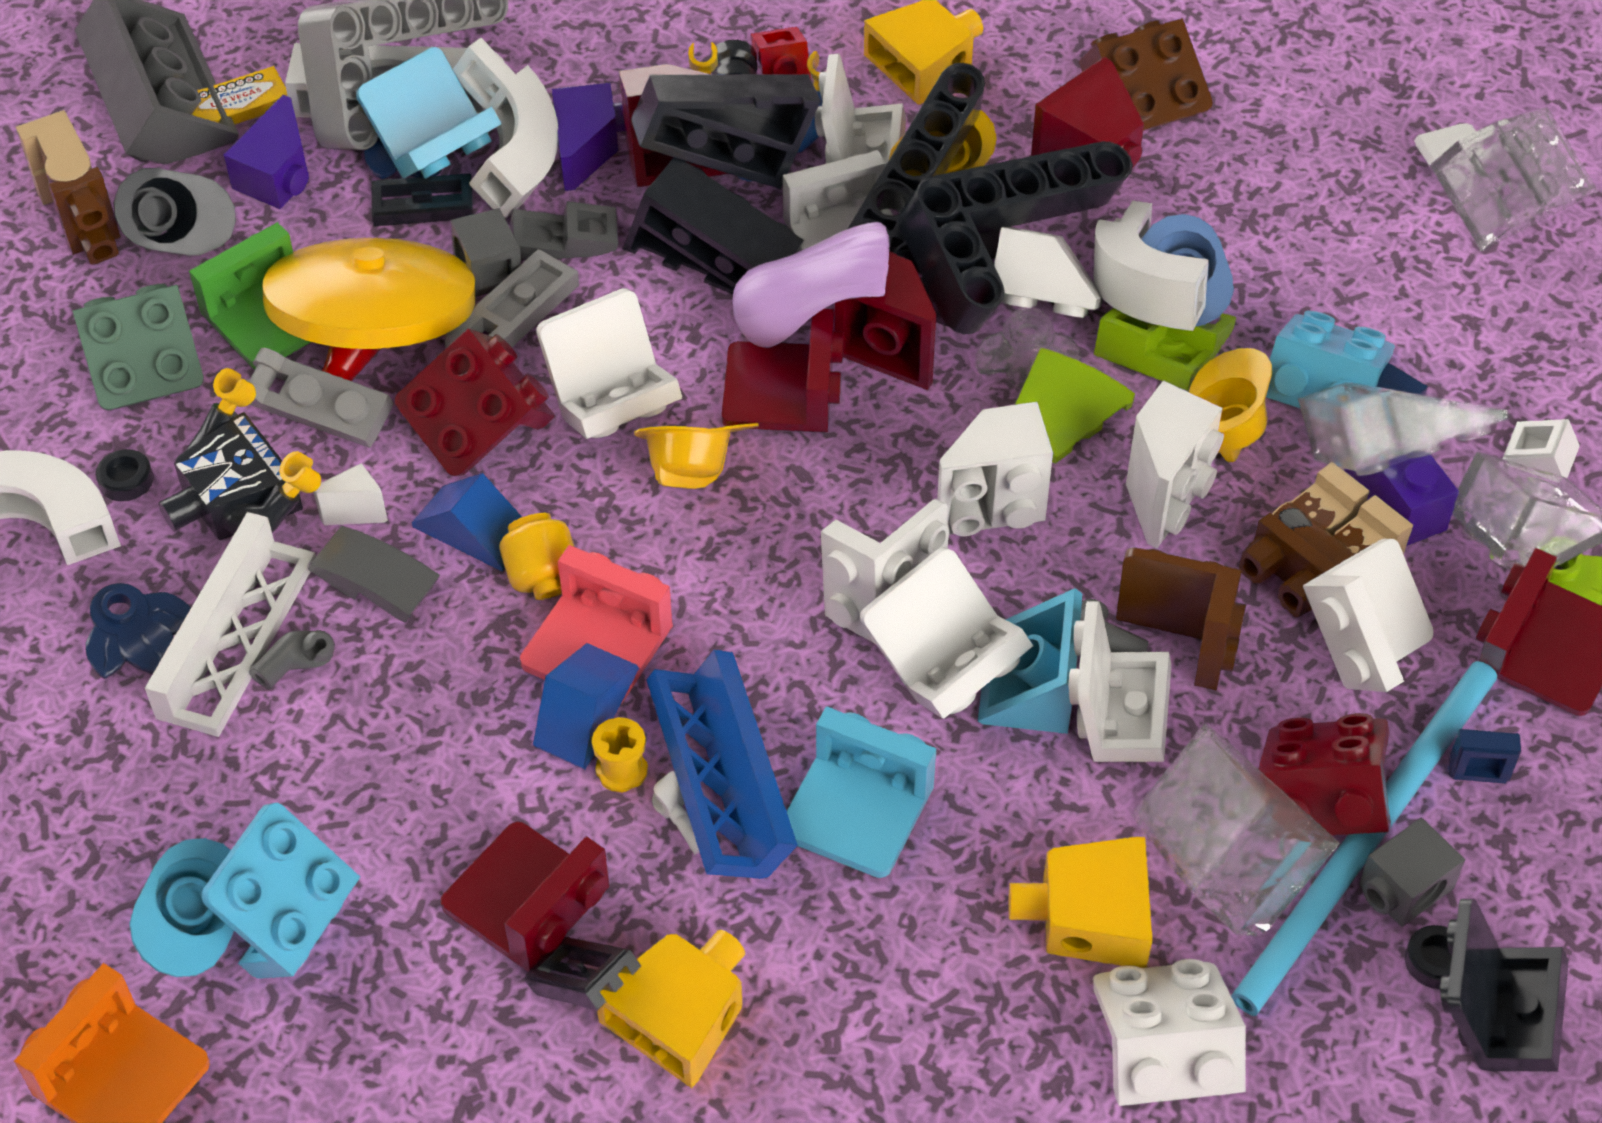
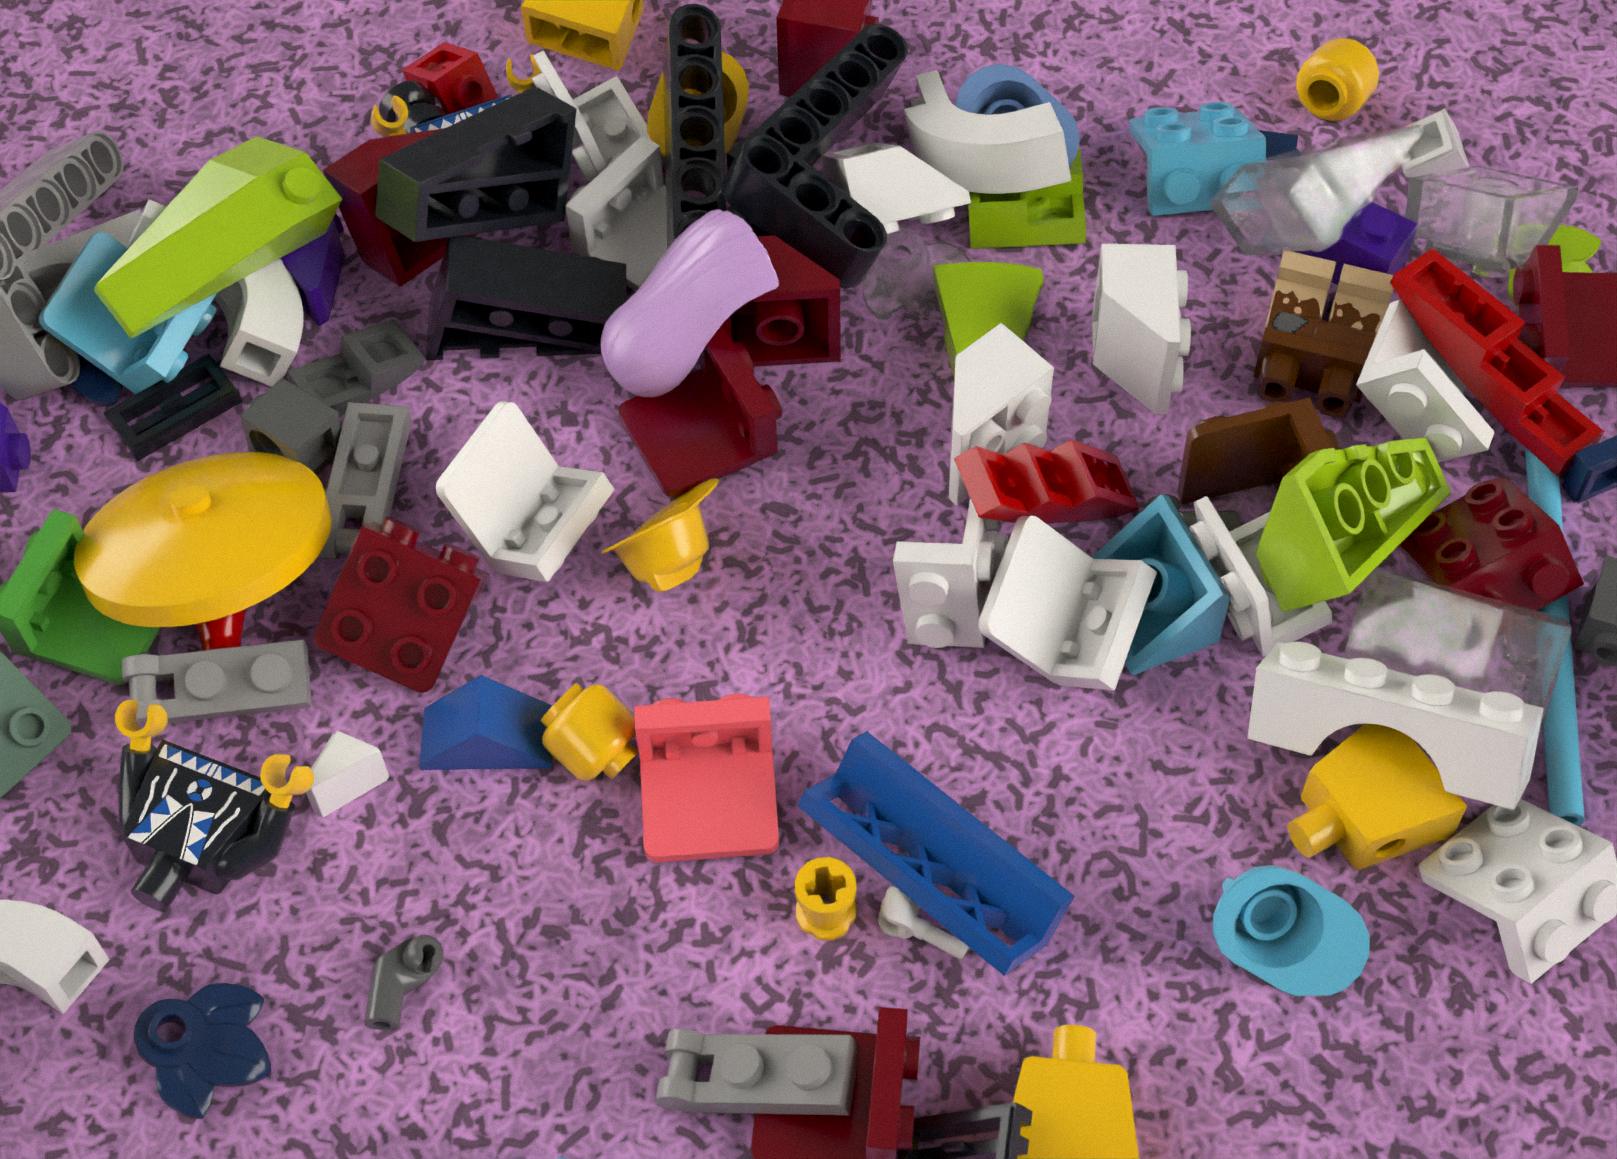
camera: 30 degrees left, 5 degrees up
(124, 475) = (58, 877): black tile -> none
(210, 620) = (285, 988): white fence -> none
(375, 569) = (415, 838): dark grey slope -> none
(482, 845) = (760, 1073): none -> light grey plate
(521, 81) = (219, 229): none -> lime wedge
(578, 699) = (750, 866): blue slope -> none
(861, 792) = (1087, 807): medium azure bracket -> none
(944, 958) = (1290, 931): none -> medium azure piece
(989, 540) = (1054, 485): none -> red slope
(1185, 888) = (1475, 738): none -> white arch
(1210, 668) = (1344, 516): none -> lime wedge
(1239, 386) = (1143, 211): yellow piece -> none
(1441, 623) = (1483, 349): none -> red slope
(1493, 357) = (1337, 79): none -> yellow head

